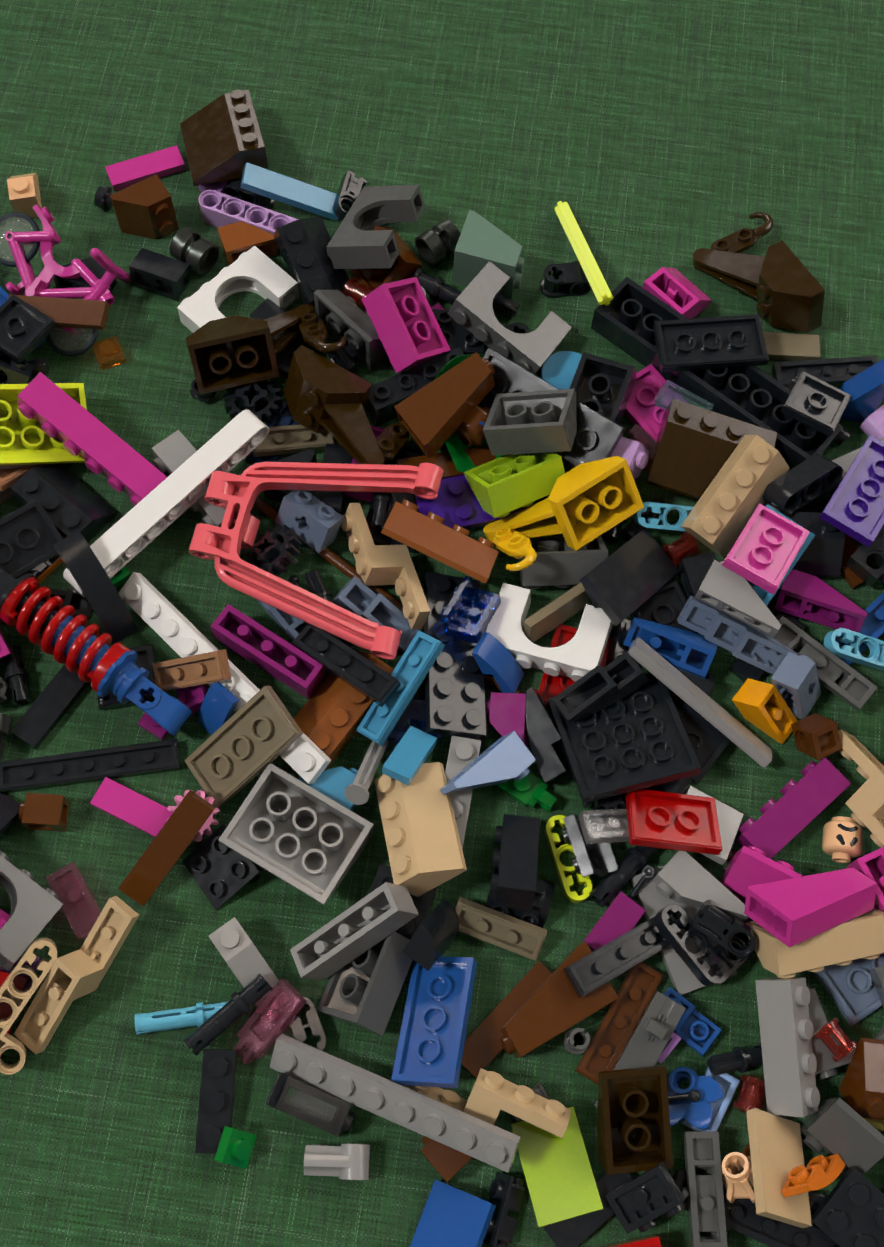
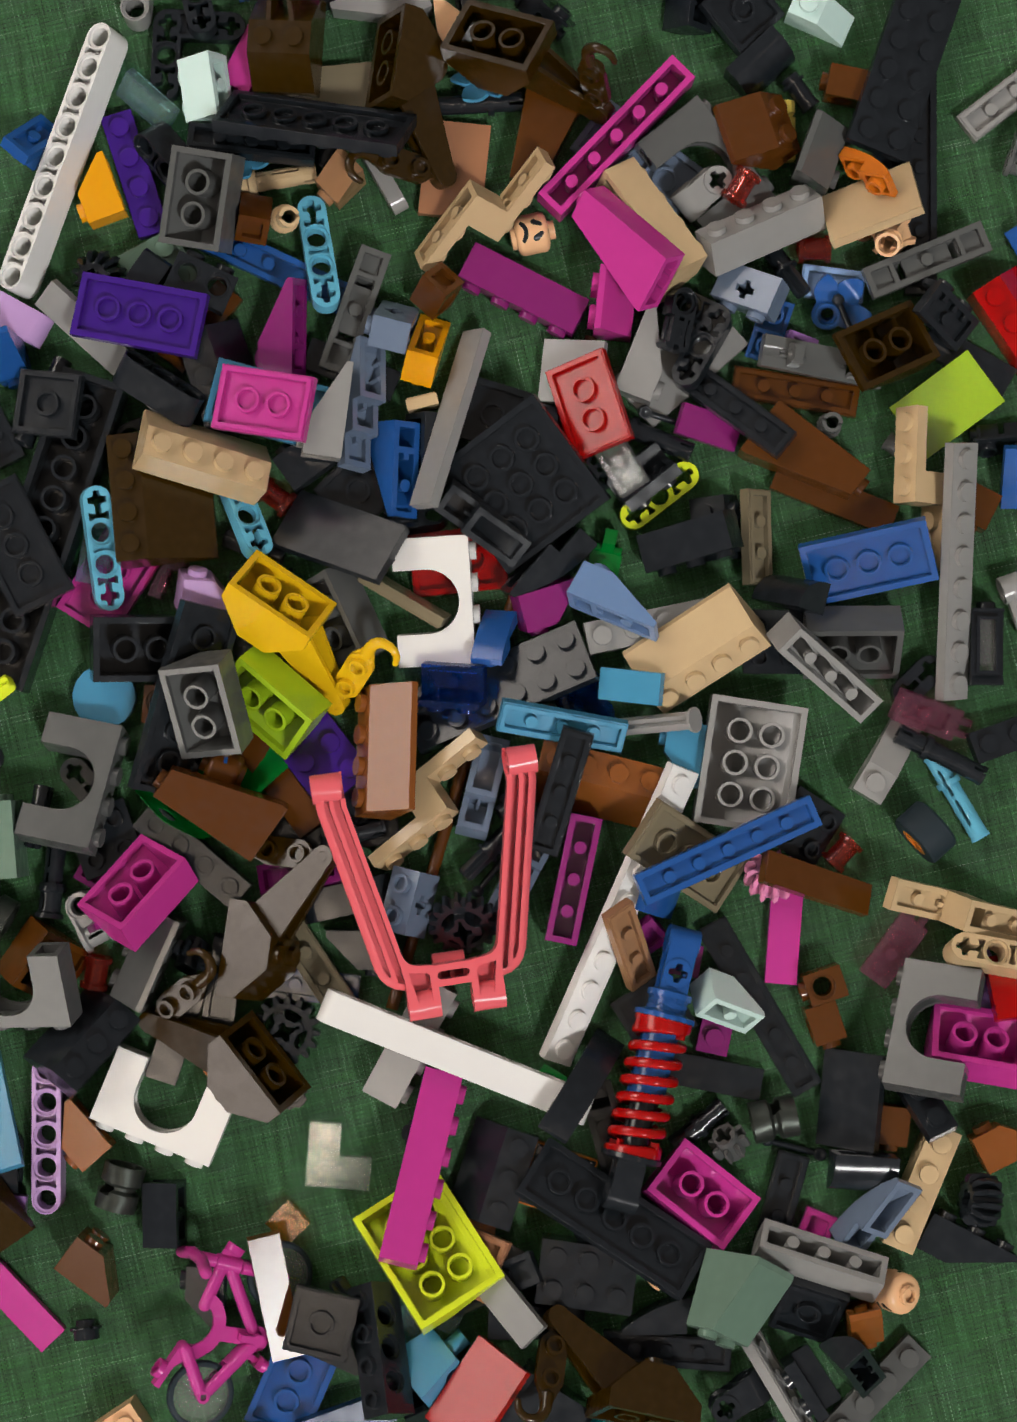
camera: 110 degrees left, 20 degrees up
(82, 718) = (713, 1038): none -> magenta plate
(84, 835) = (836, 989): none -> reddish brown brick
(106, 733) = (724, 1001): none -> light aqua slope
(134, 392) = (325, 1164): none -> clear plate
(164, 970) = (925, 832): none -> black wheel
(184, 889) = (841, 852): none -> clear red bush
(230, 775) = (727, 850): none -> blue plate
(686, 394) = (96, 549): none -> medium azure beam
(720, 690) = (422, 402): none -> tan tile
(728, 1014) = (765, 301): none -> sand blue brick
(838, 1000) = (697, 195): none -> light grey piece

